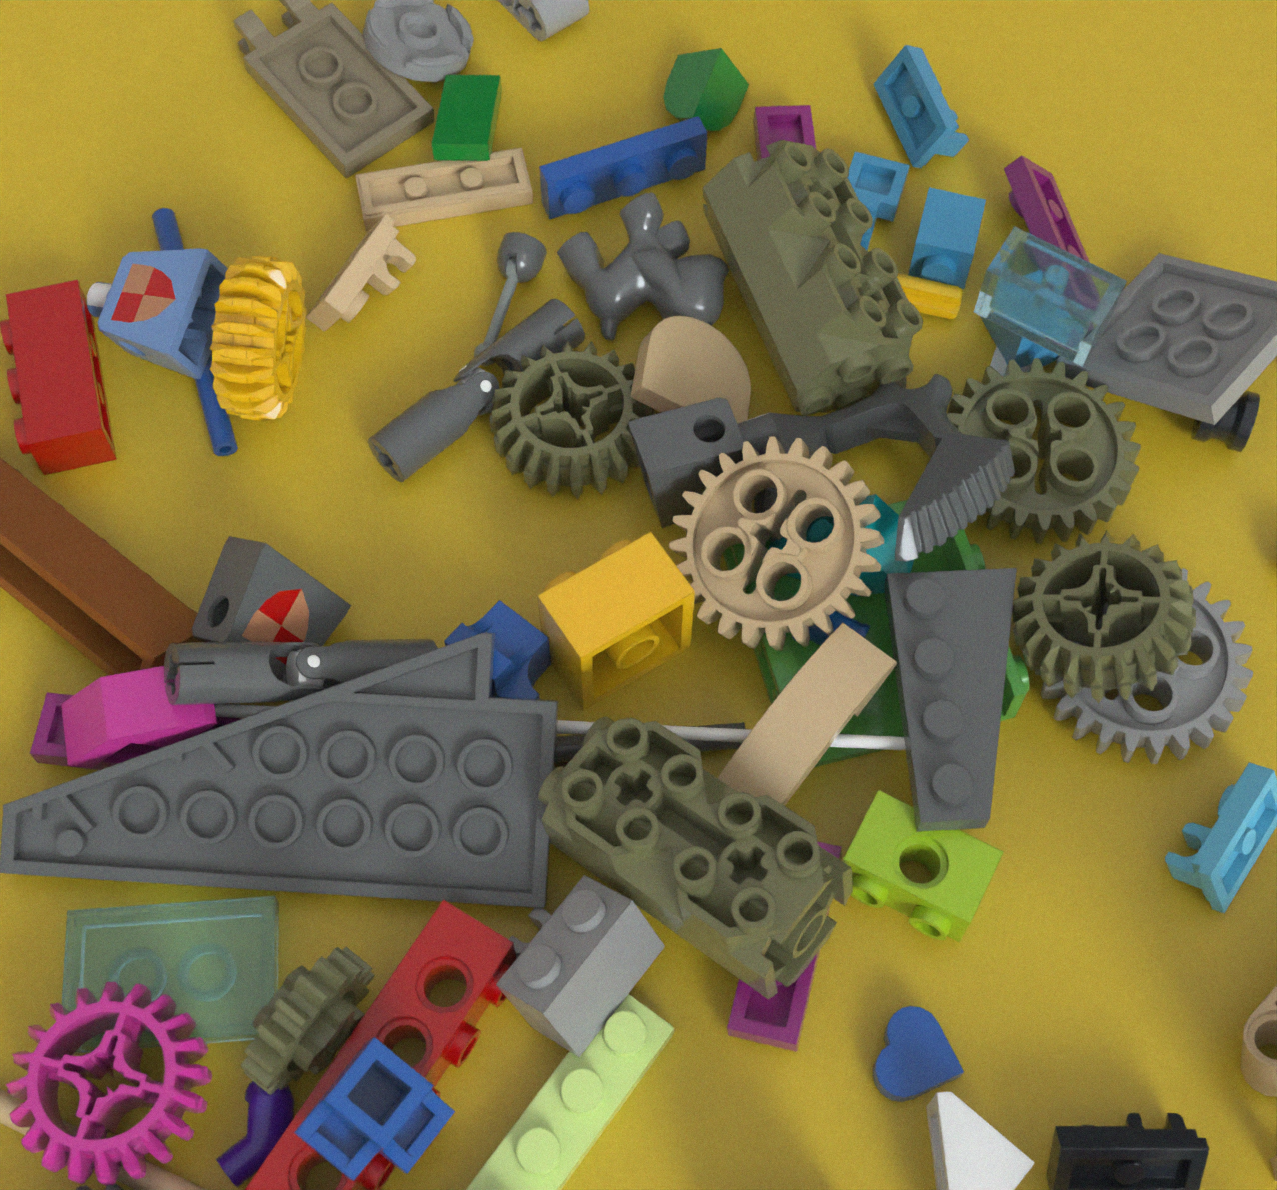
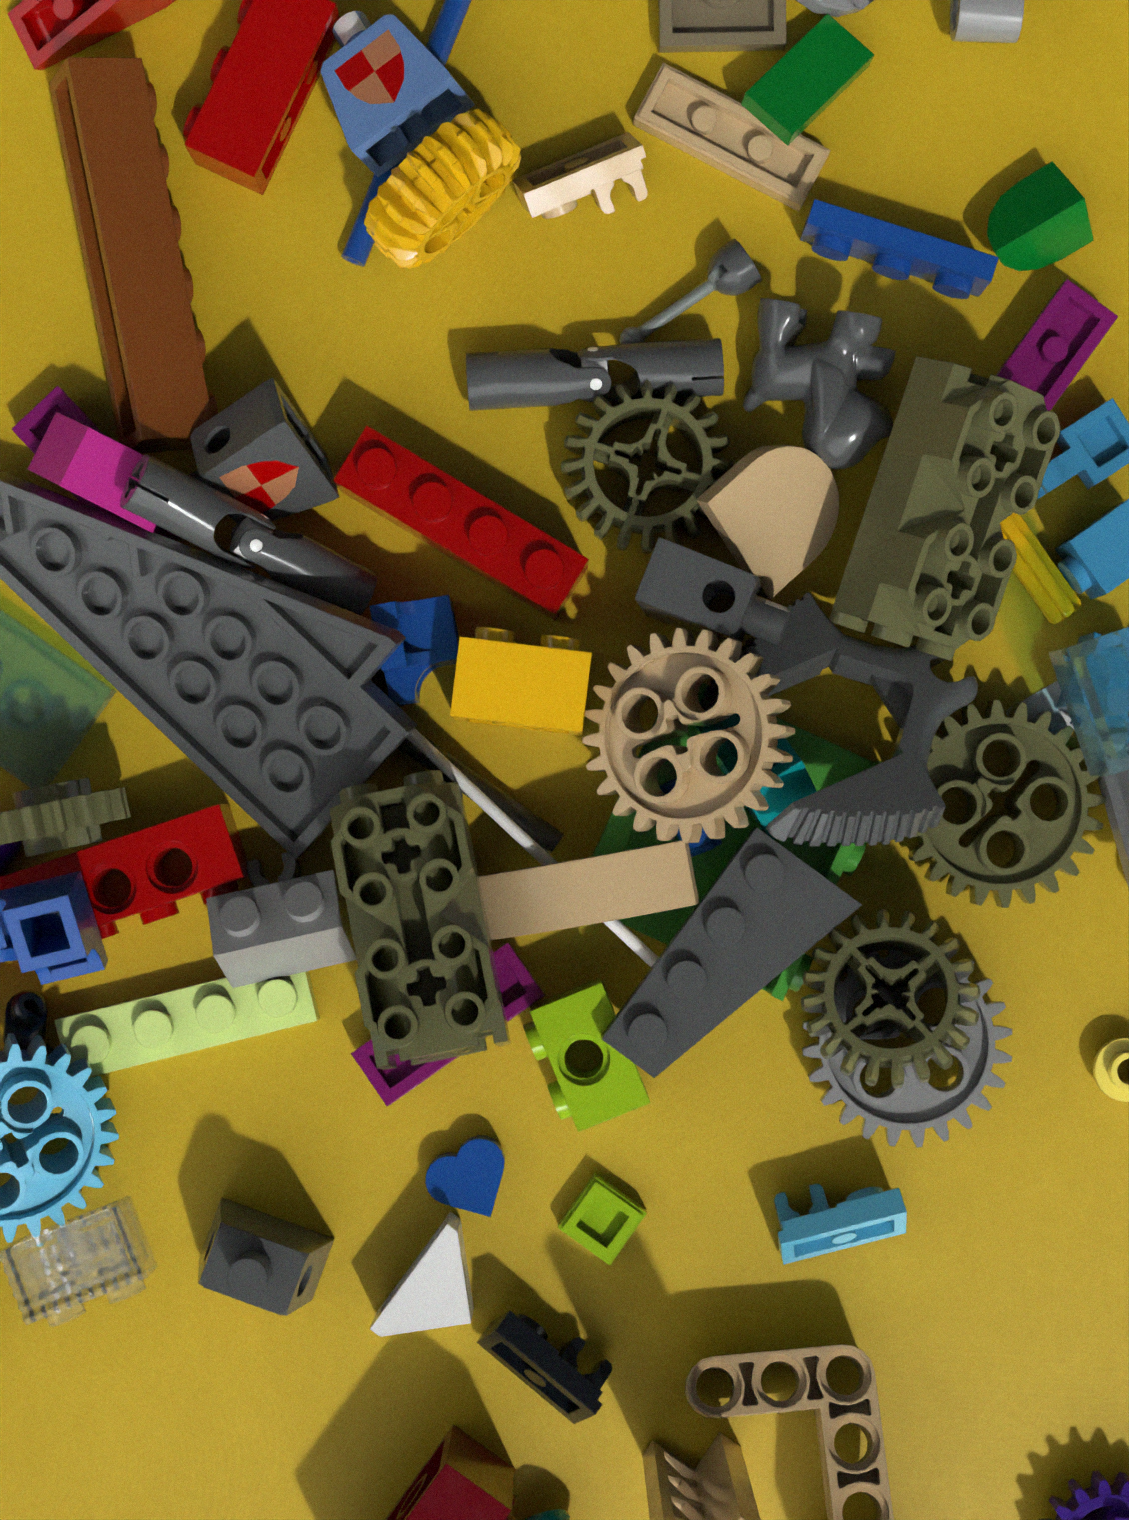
camera: 40 degrees right, 25 degrees up
(462, 552) = (461, 523): none -> red brick
(1052, 1000) = (602, 1218): none -> lime tile

